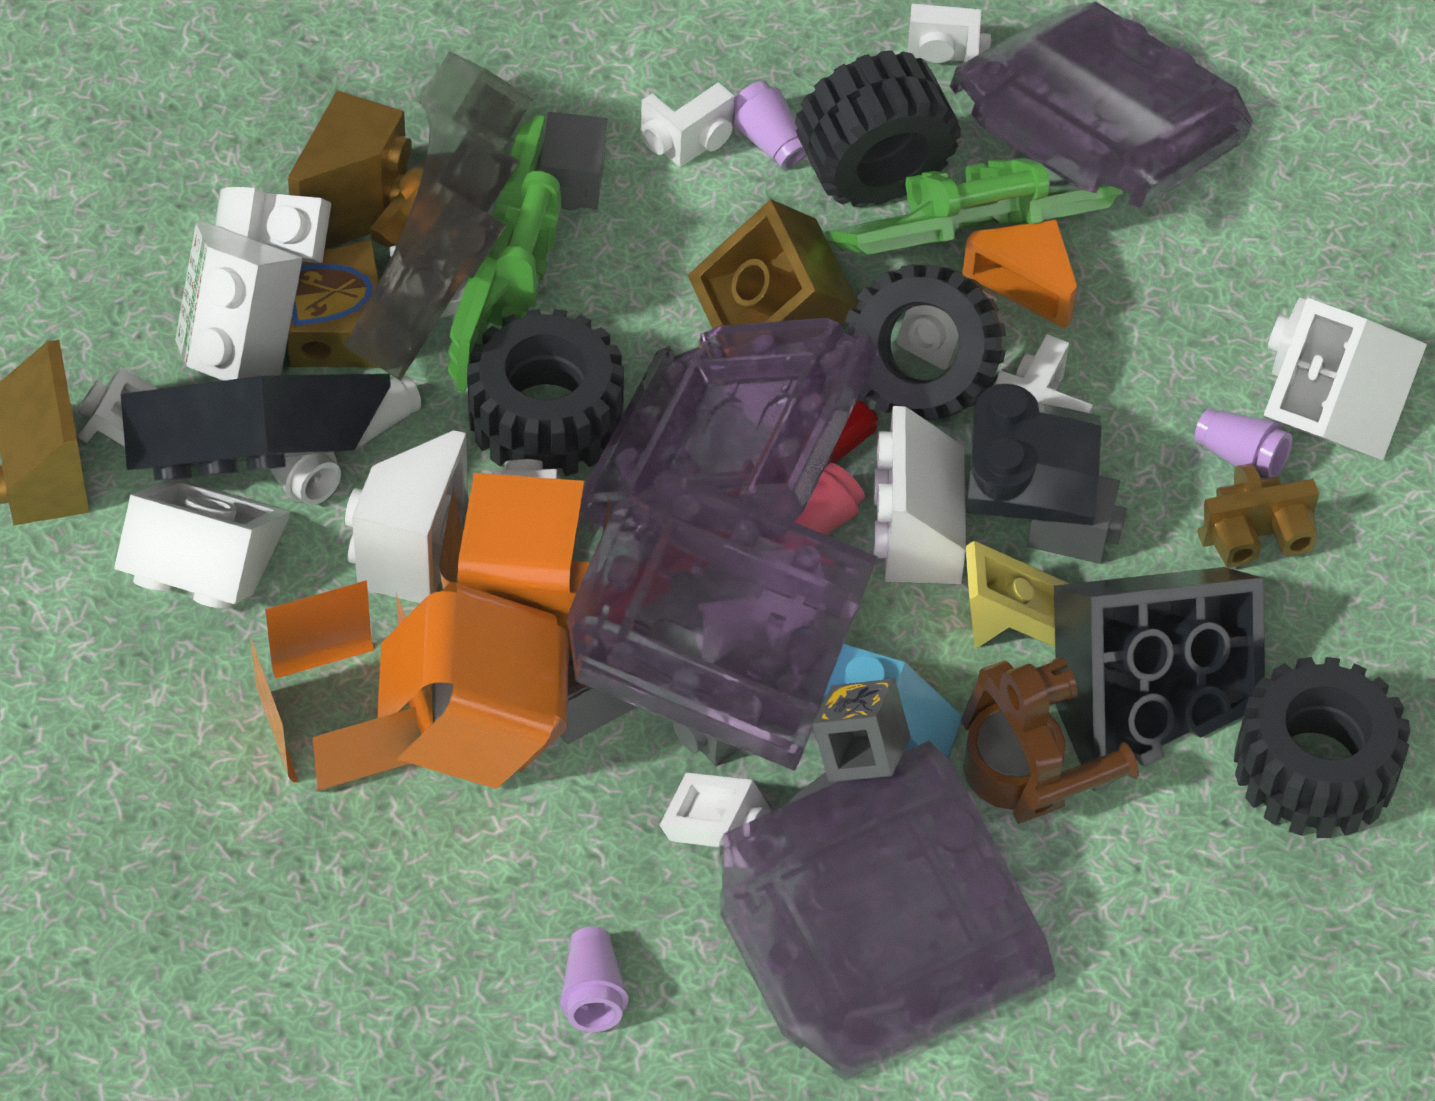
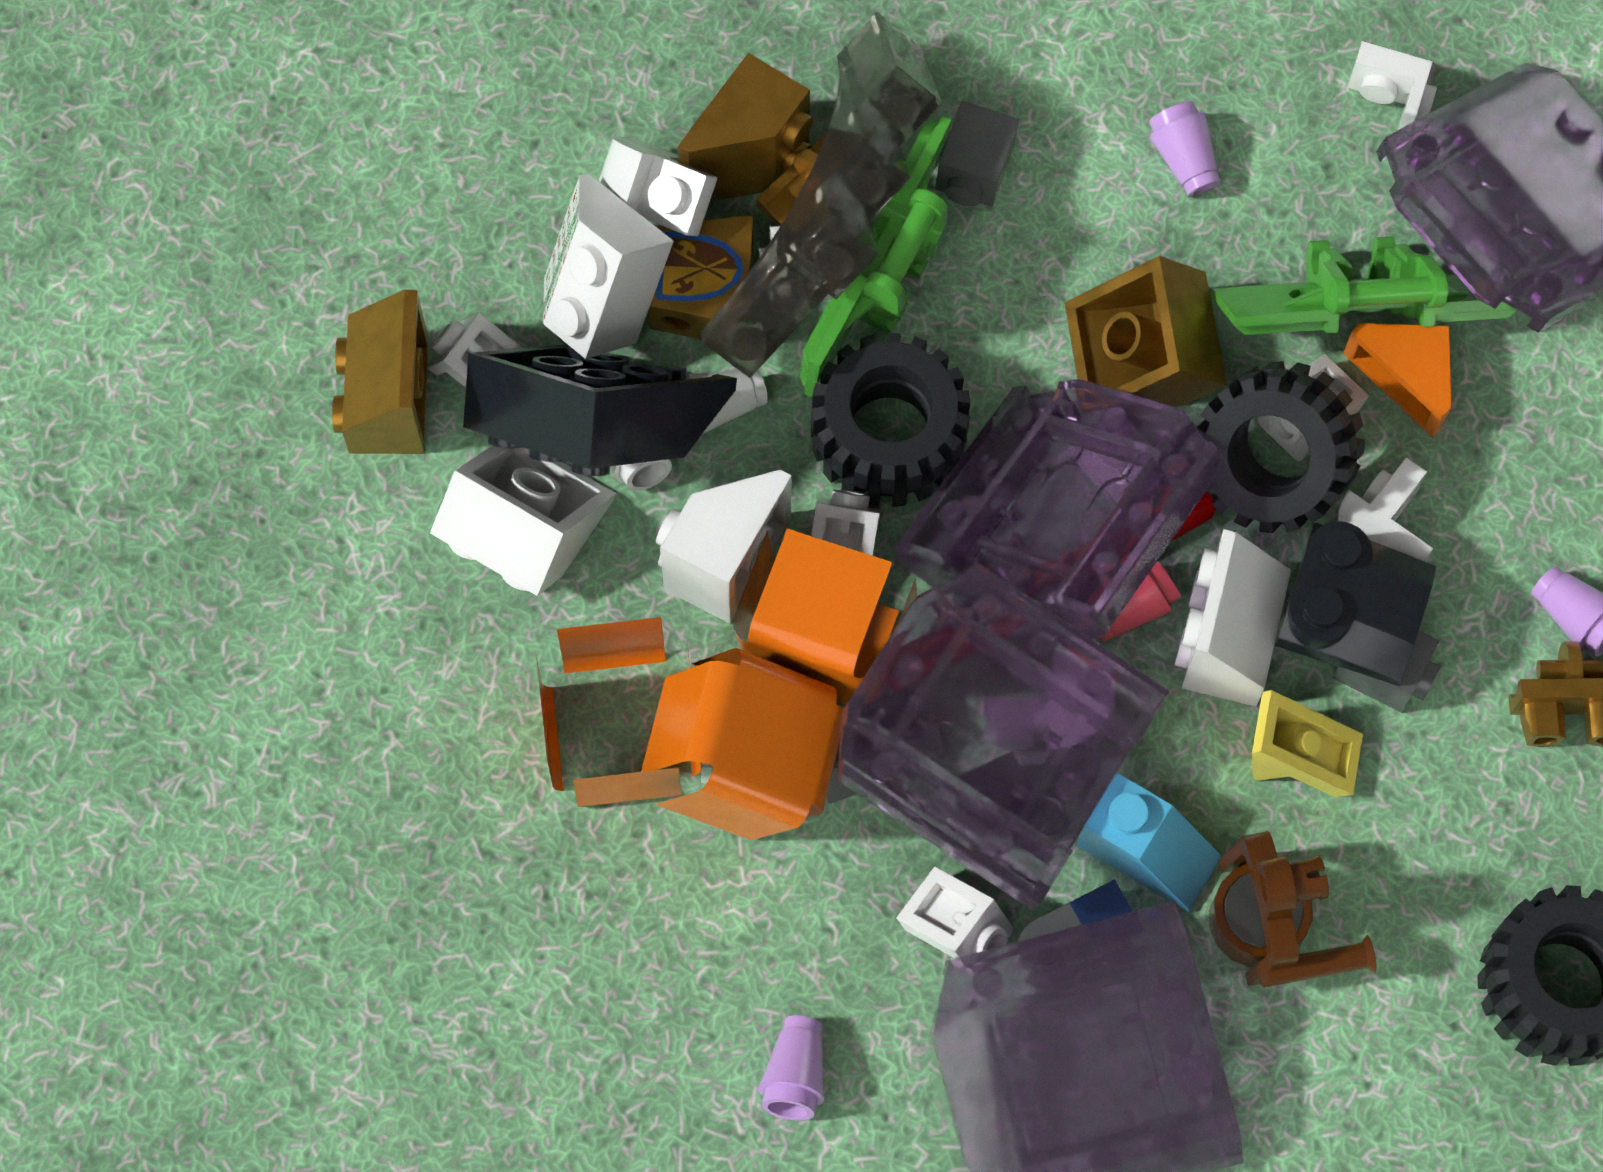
camera: 15 degrees right, 15 degrees up
(690, 130) = (1114, 138): white bracket -> none
(861, 730) = (1108, 881): dark grey brick -> none
(876, 127) = (1289, 187): black tyre -> none
(1158, 657) = (1429, 841): black wedge -> none

